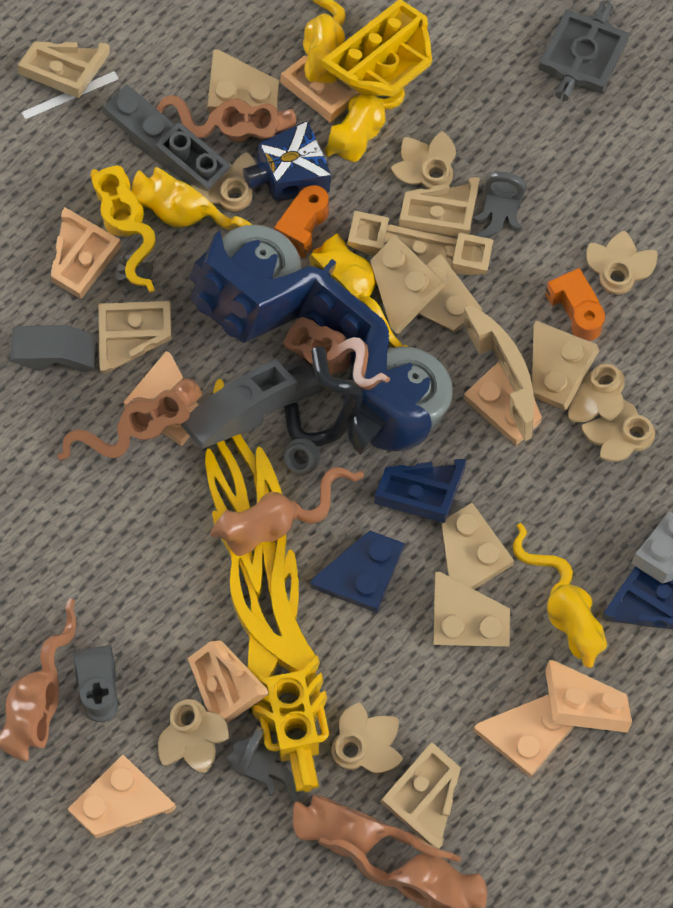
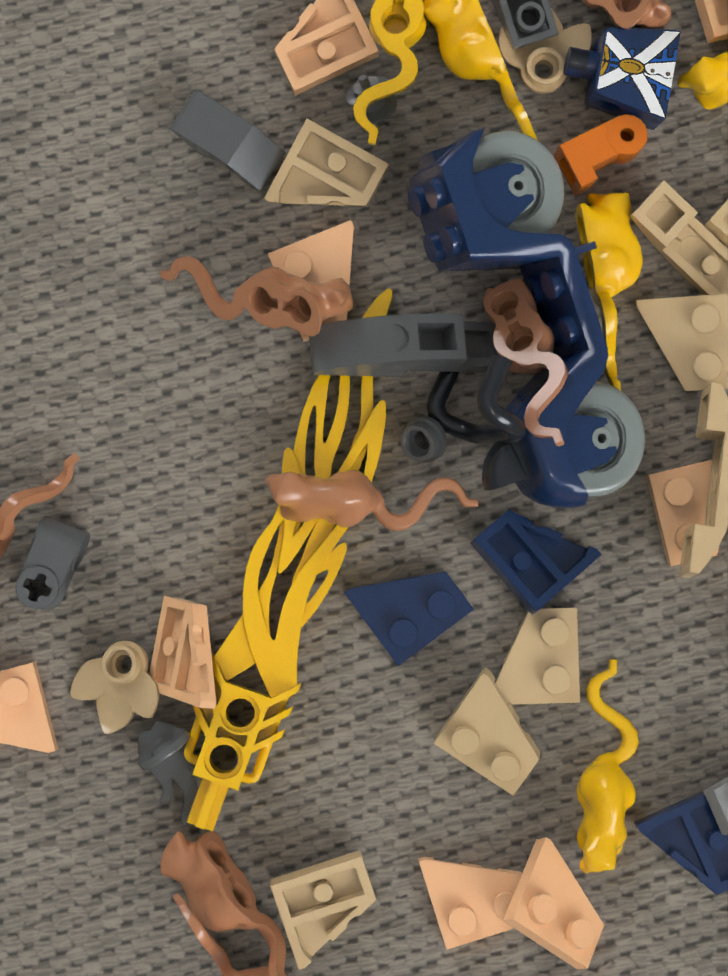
camera: 25 degrees right, 20 degrees up
(370, 737) = (304, 806): tan plate -> none
(403, 282) = (665, 302): tan wing -> none

